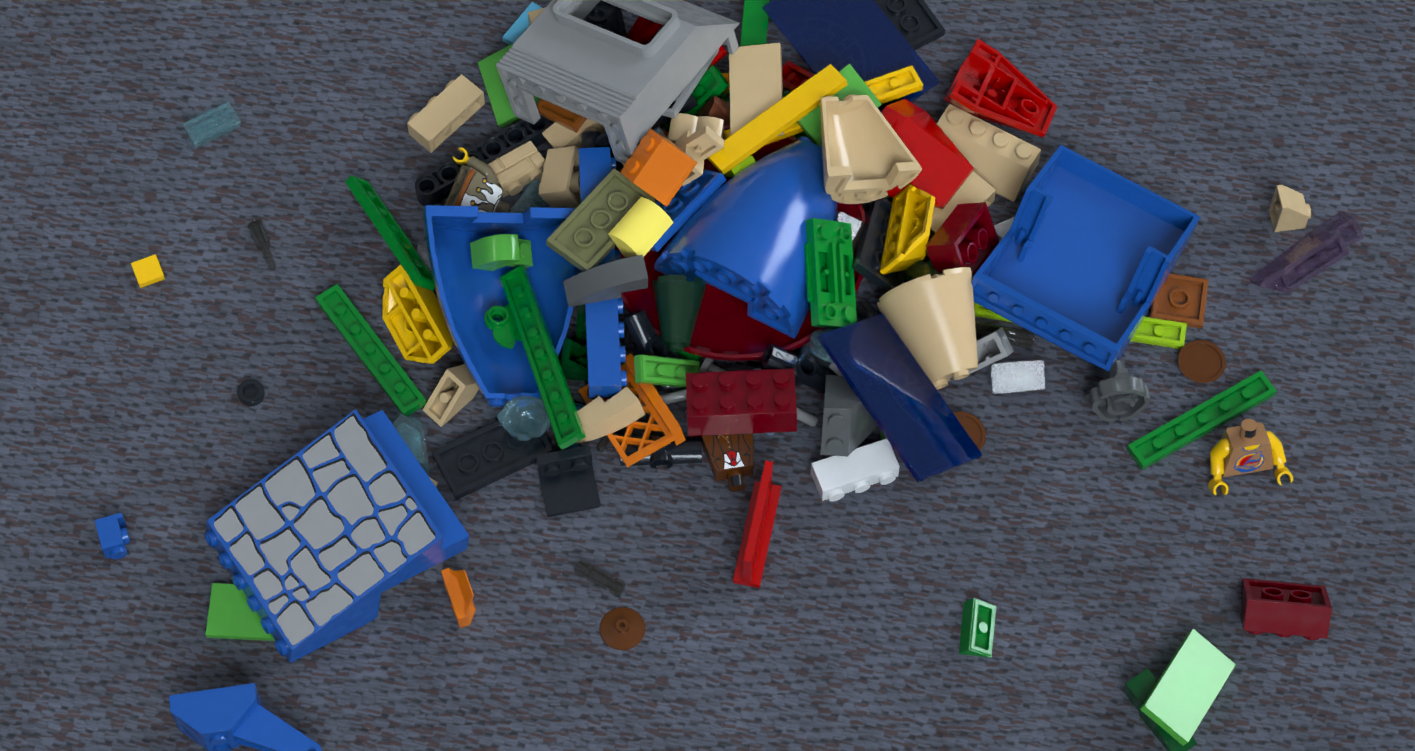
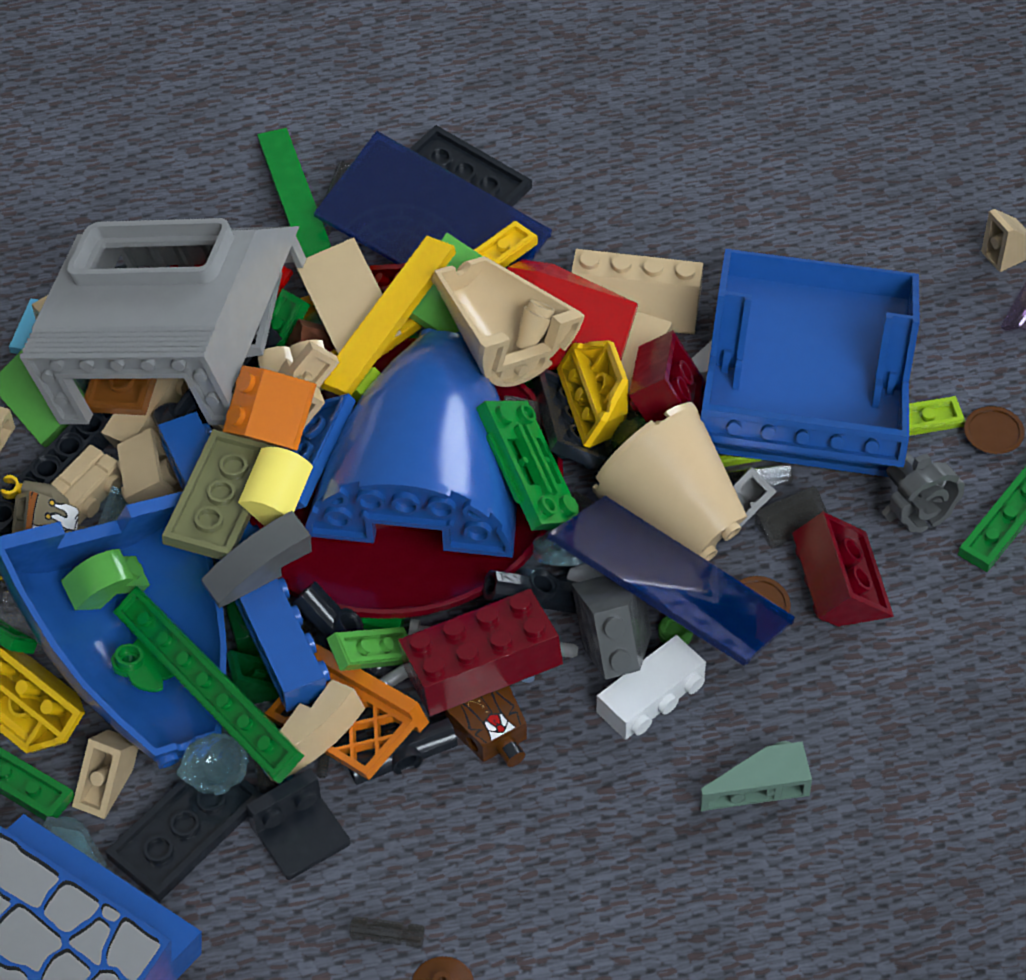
camera: 20 degrees left, 10 degrees down
(677, 308) = (357, 565): clear green cone -> none
(758, 530) = (563, 800): red fence -> none
(882, 162) = (534, 323): none -> tan cone
(905, 564) = (766, 776): none -> sand green slope
(977, 628) = (886, 822): green slope -> none
(998, 92) = (621, 223): red wedge -> none
(1033, 432) = (841, 571): none -> dark red slope
(1181, 300) = (939, 374): dark orange tile -> none

